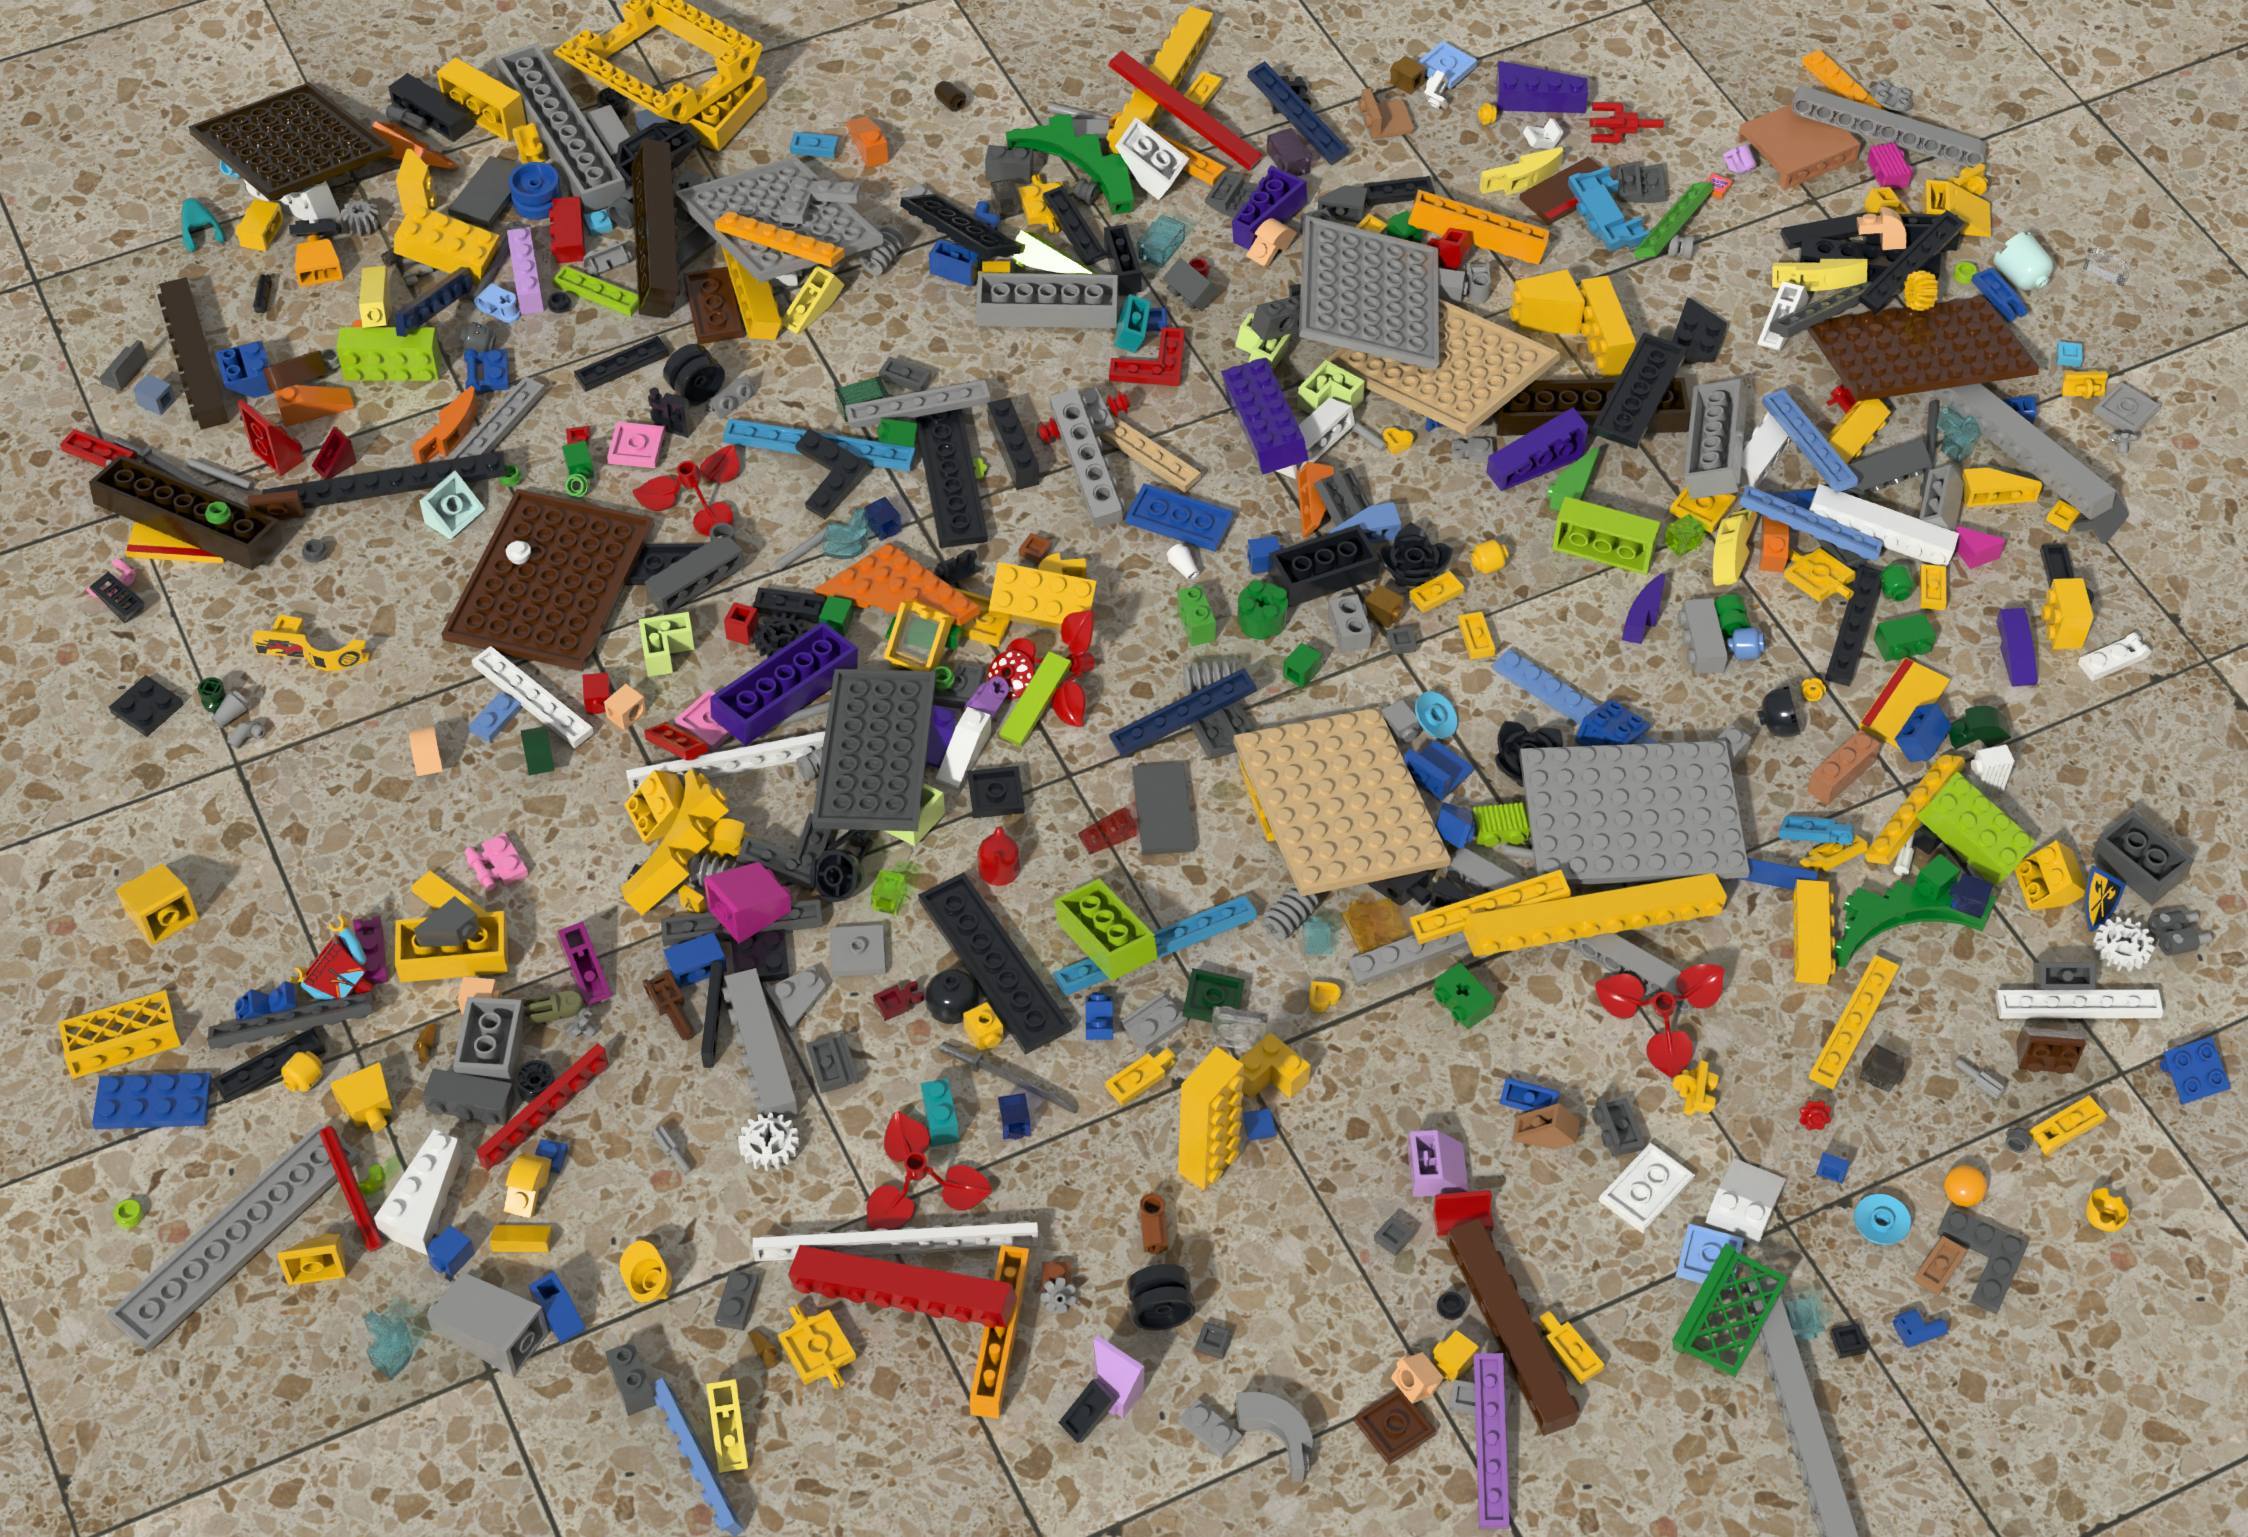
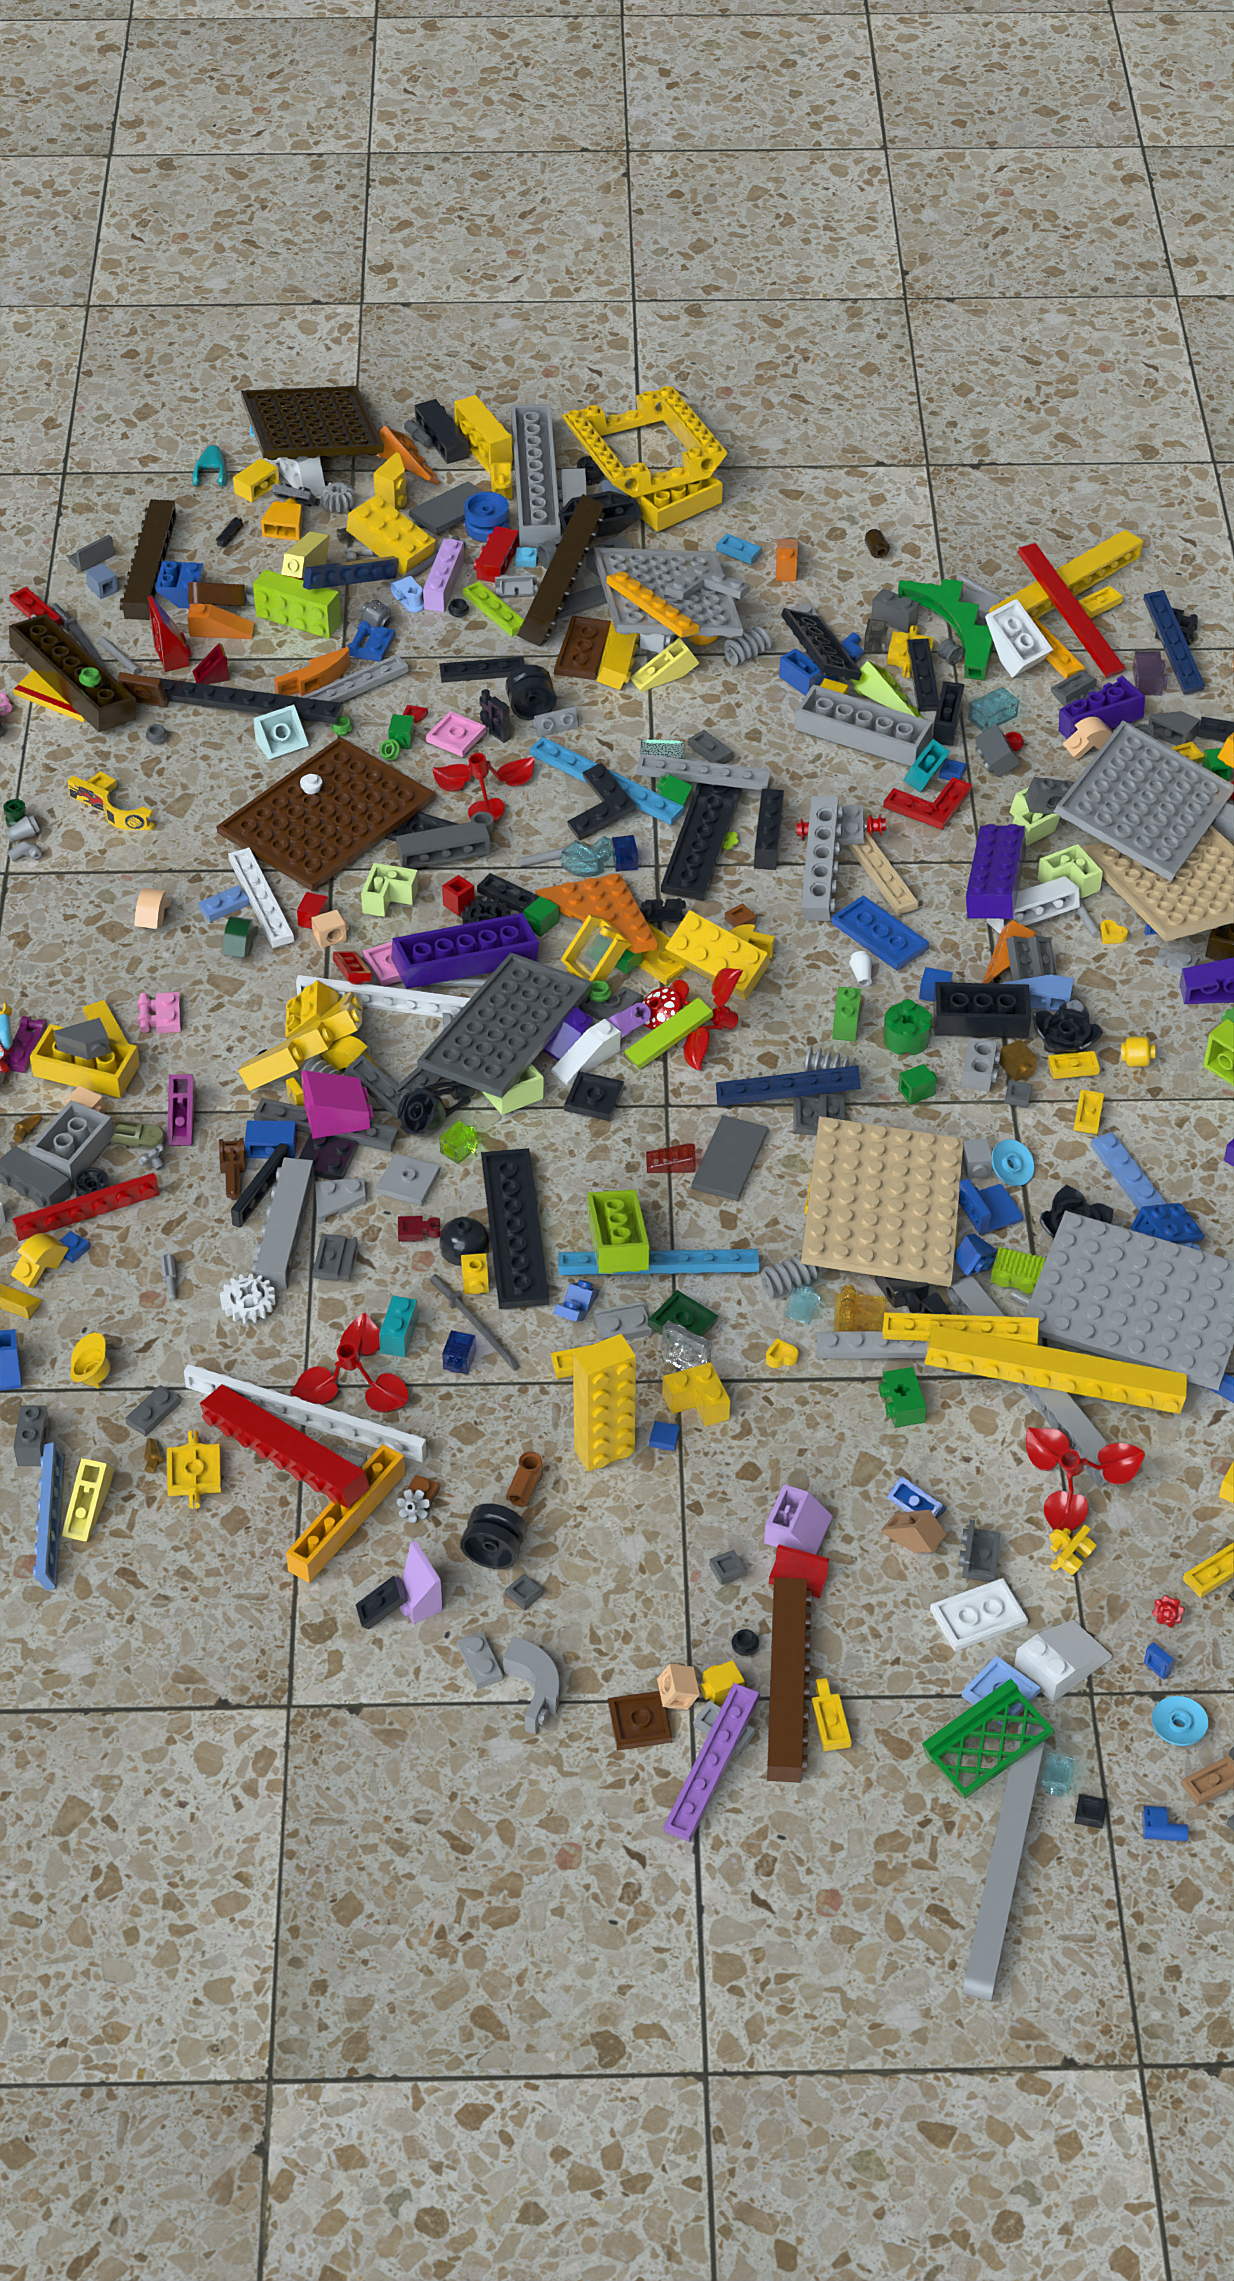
camera: 25 degrees right, 5 degrees down
(997, 858) = (562, 1144): red piece -> none

